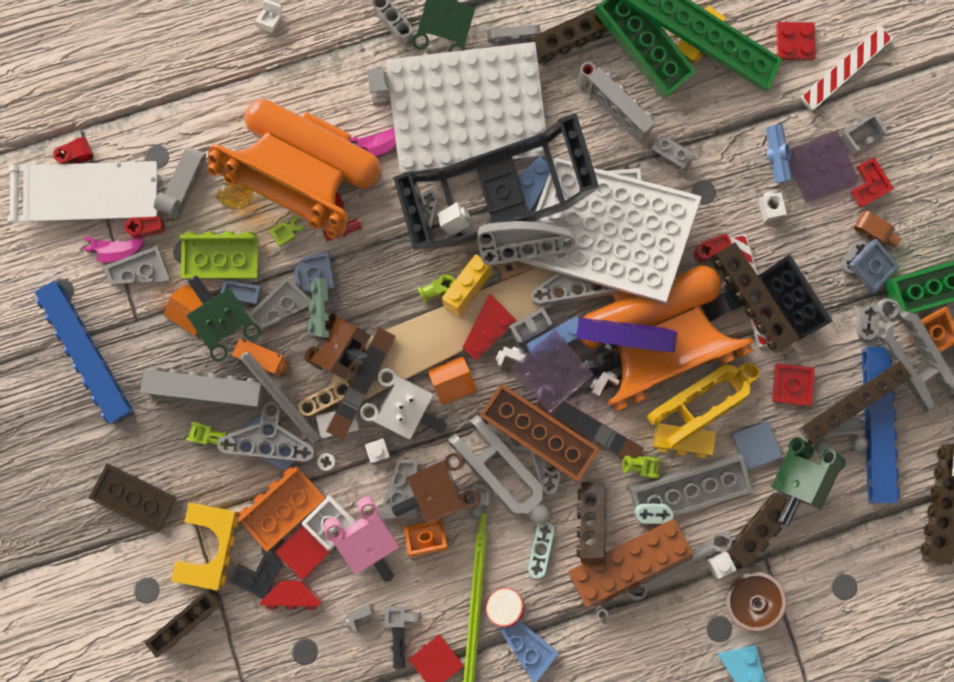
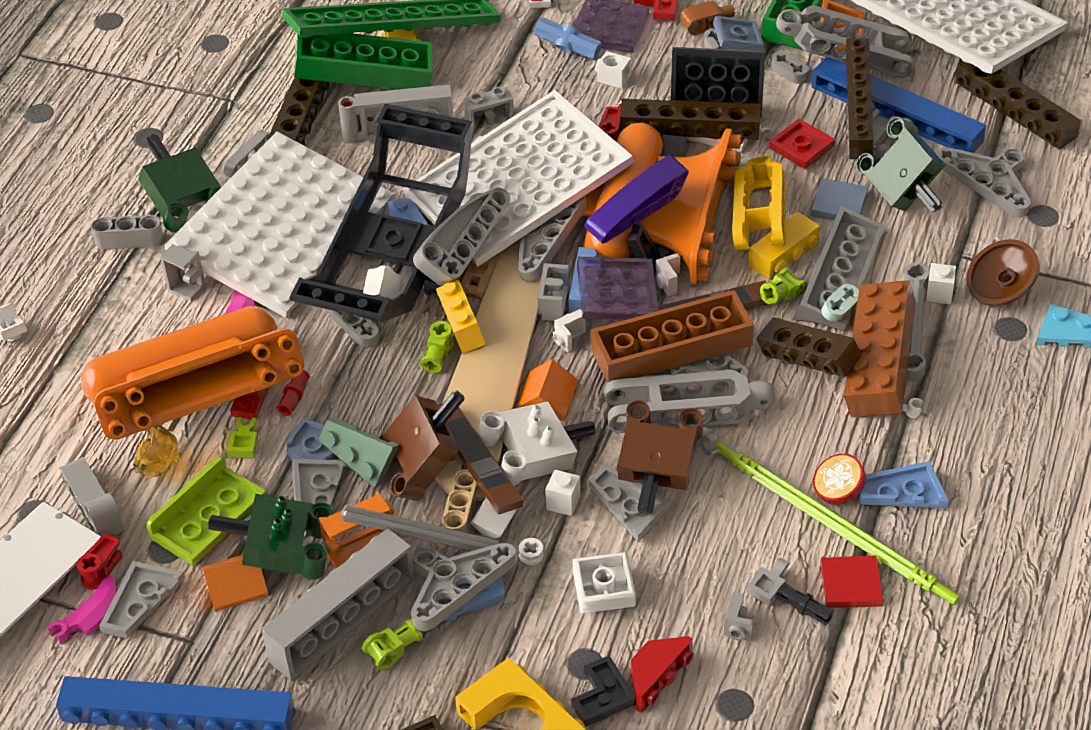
camera: 50 degrees left, 35 degrees down
(281, 508) = (544, 621): orange bracket -> none
(302, 552) = (613, 632): red tile -> none
(364, 541) = (653, 549): bright pink piece -> none
(425, 538) = (702, 508): orange slope -> none
(488, 328) = (522, 327): red wing -> none
(538, 533) = (803, 430): light aqua beam -> none
(749, 532) = (928, 234): dark brown brick -> none
(857, 520) = (982, 168): none -> light grey beam

